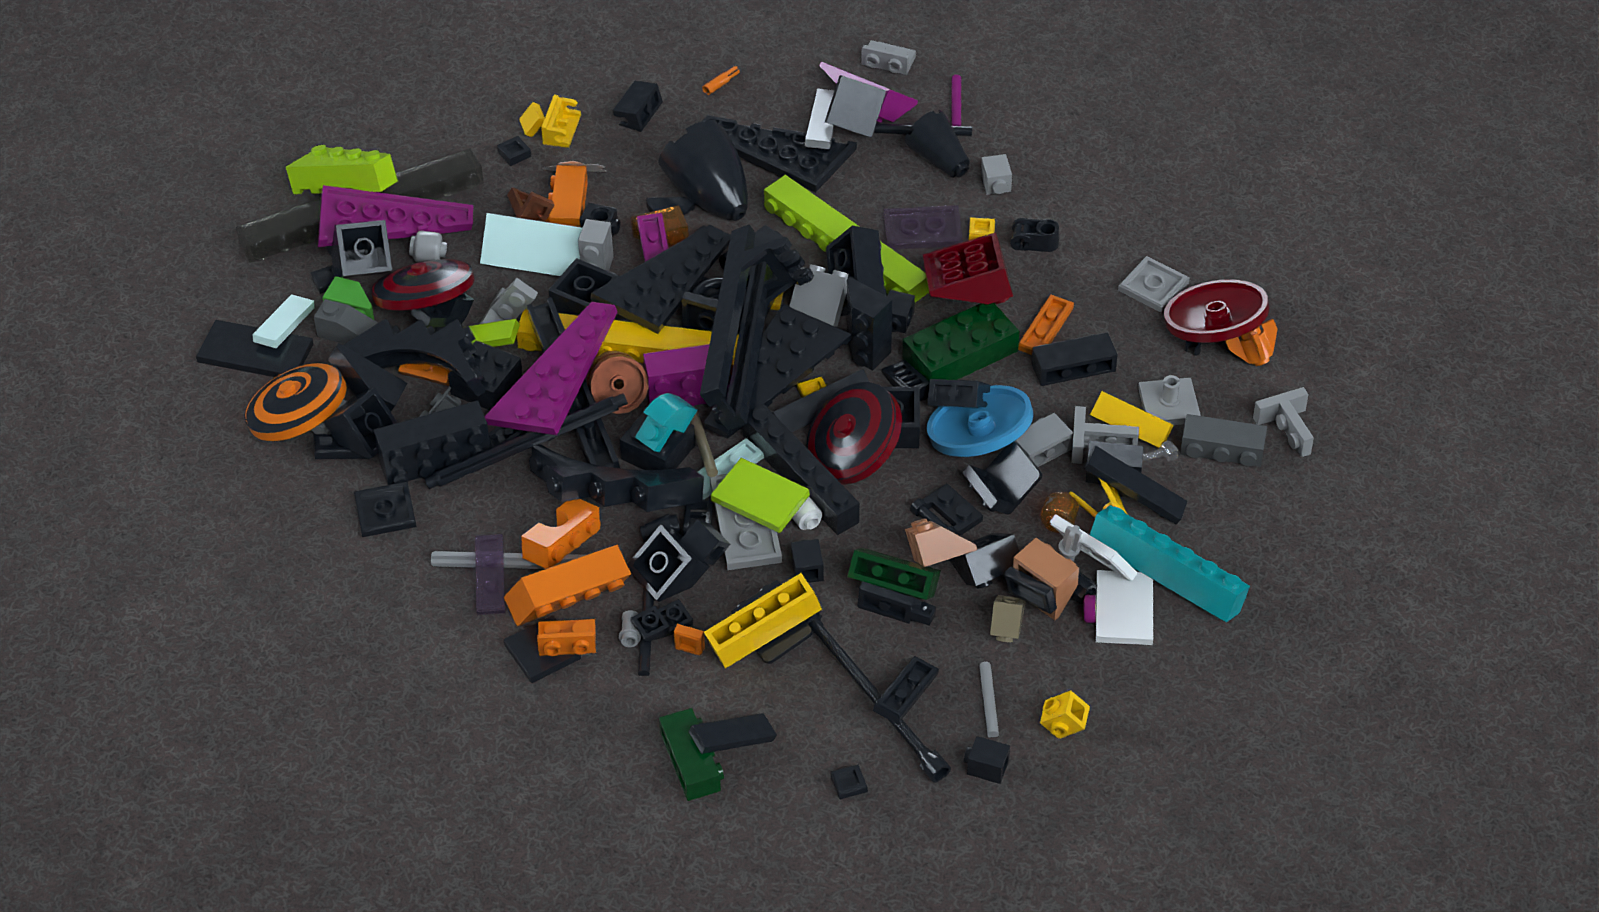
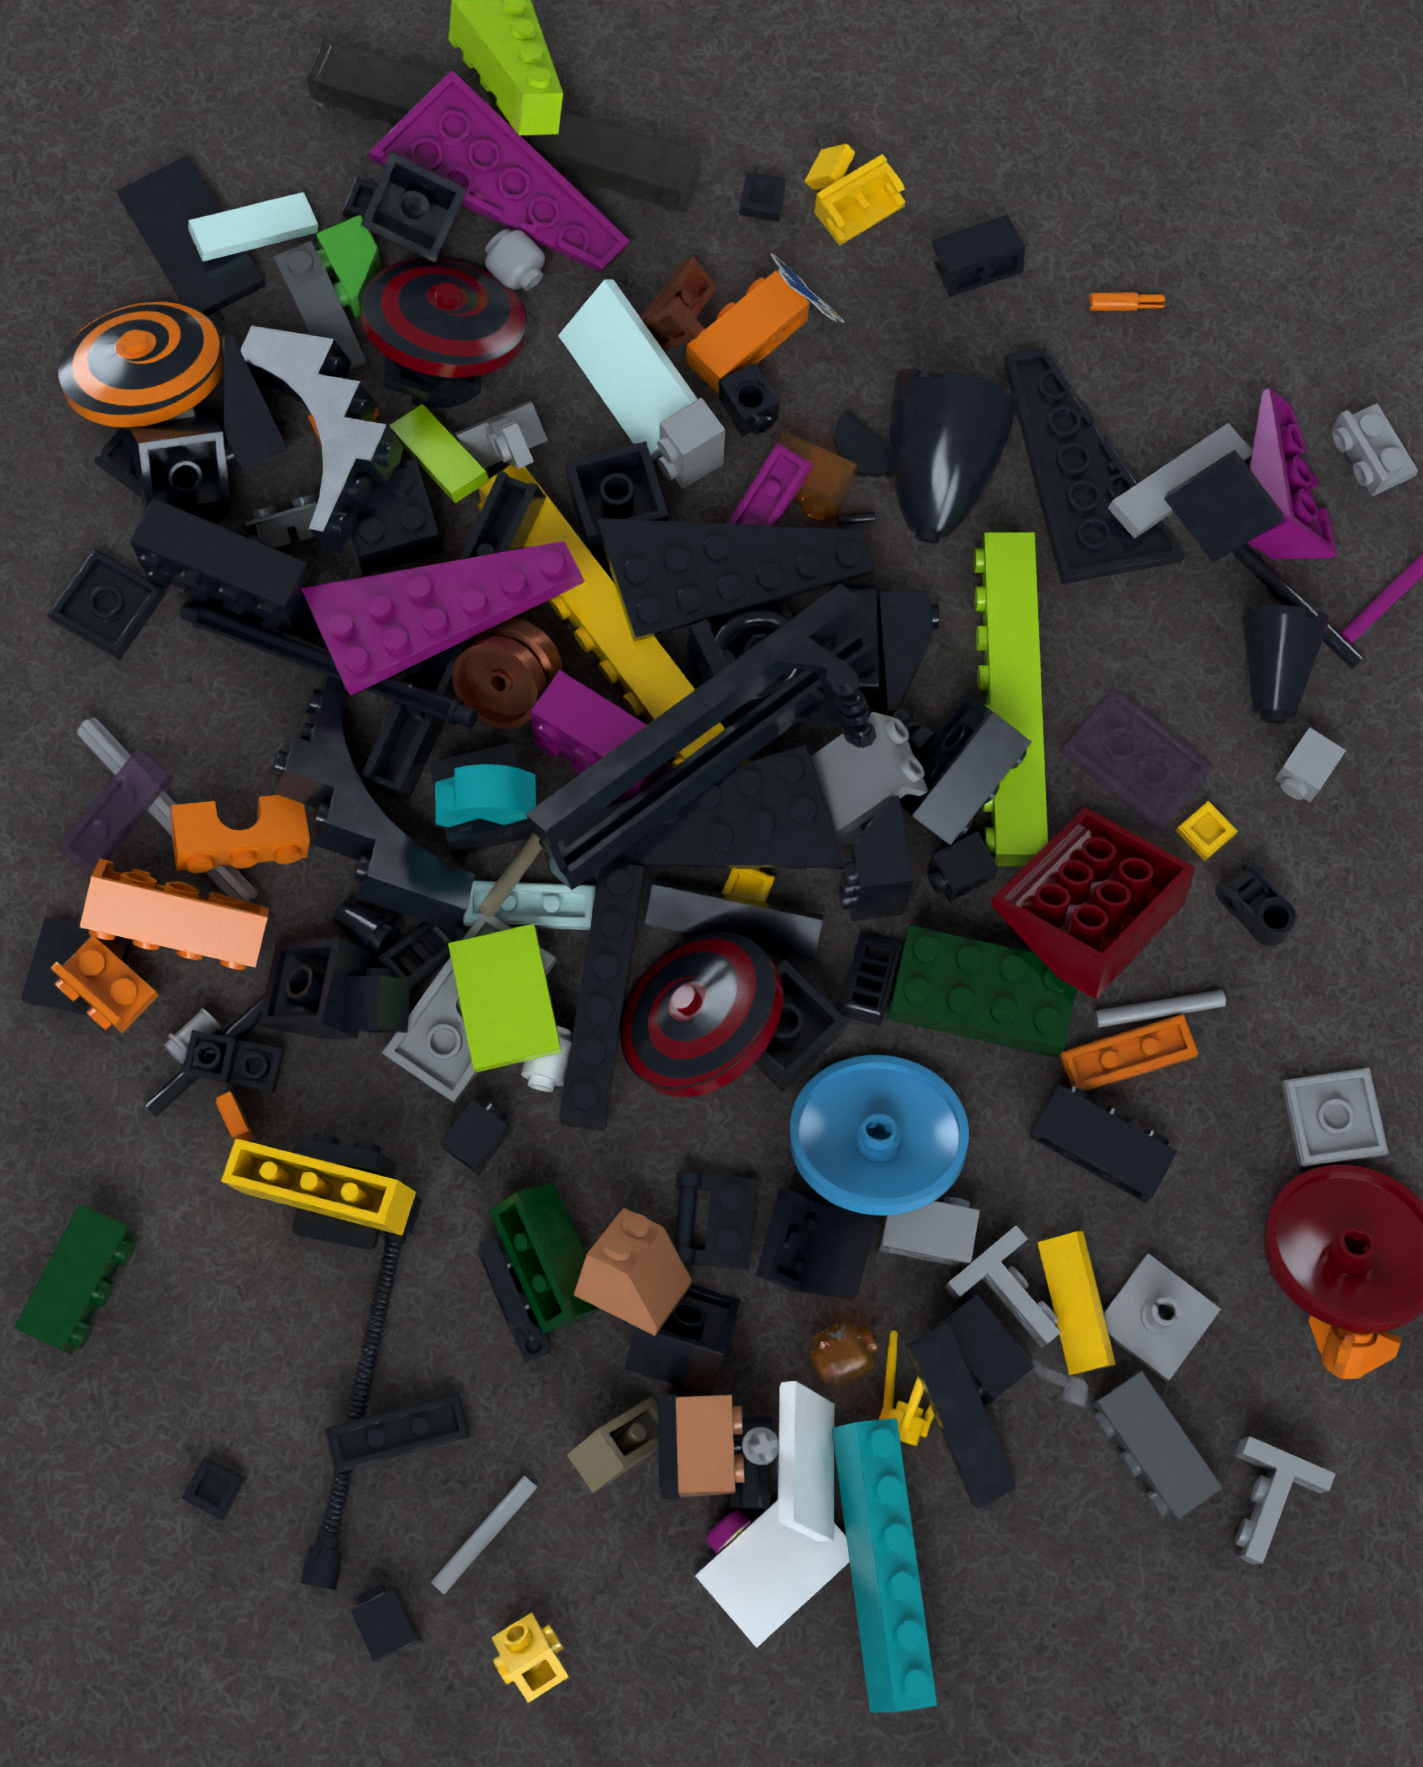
camera: 40 degrees right, 25 degrees up
(732, 733) = (140, 1303): black tile -> none
(957, 393) = (896, 1067): black hinge -> none
(1041, 298) = (1160, 1008): none -> light grey bar

